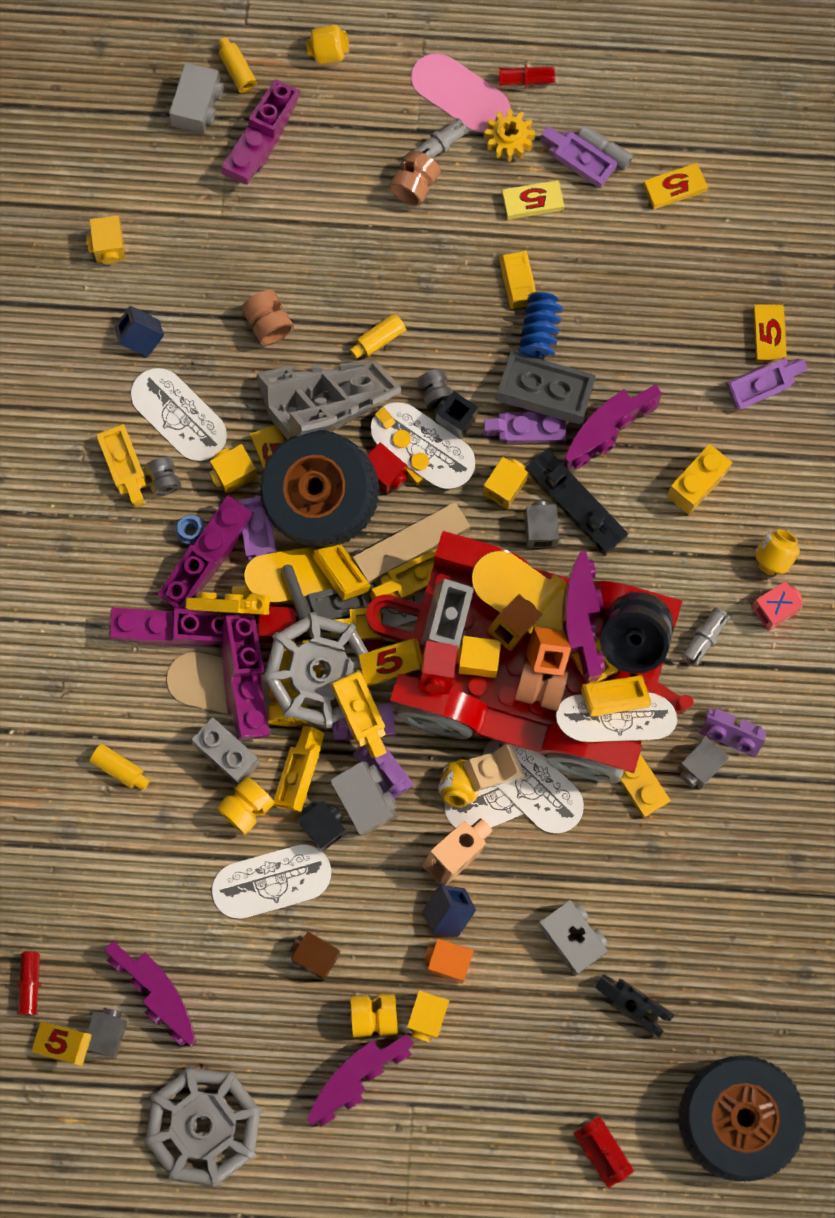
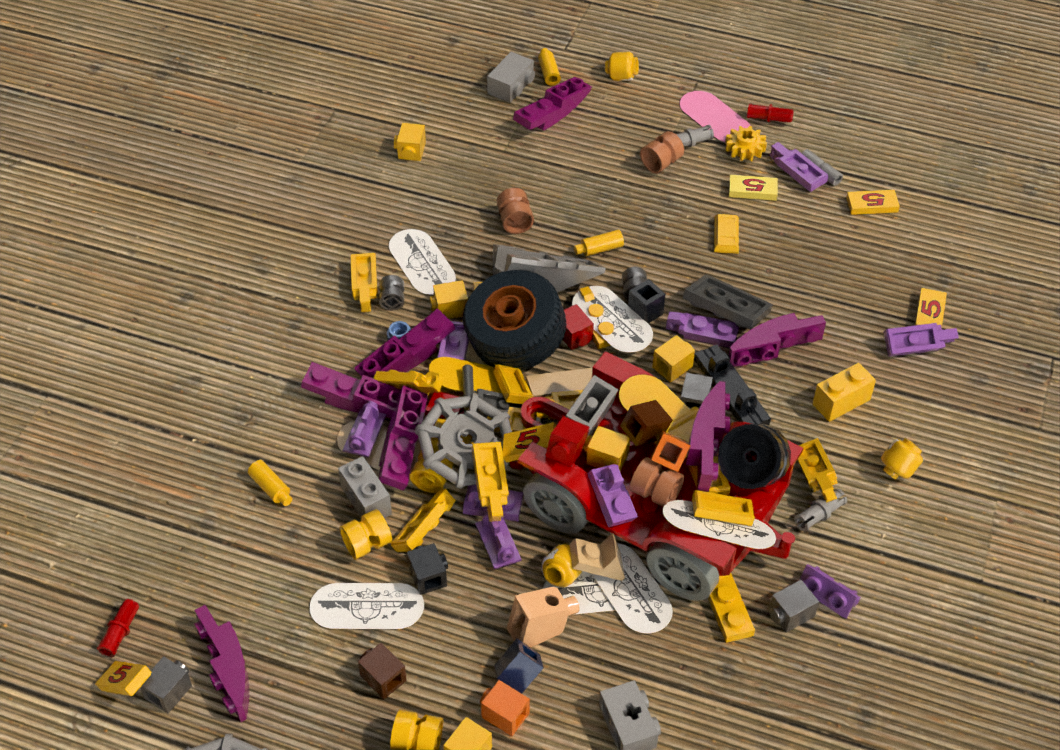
camera: 20 degrees right, 25 degrees down
(138, 331) = (411, 200): dark blue panel -> none
(197, 673) = (365, 430): none -> medium lavender hinge
(365, 797) = (472, 554): light grey brick -> none
(498, 710) = (612, 495): none -> medium lavender hinge
(540, 325) = (736, 260): blue piece -> none
(691, 588) = (818, 469): none -> yellow hinge
(778, 605) = (893, 500): coral brick -> none

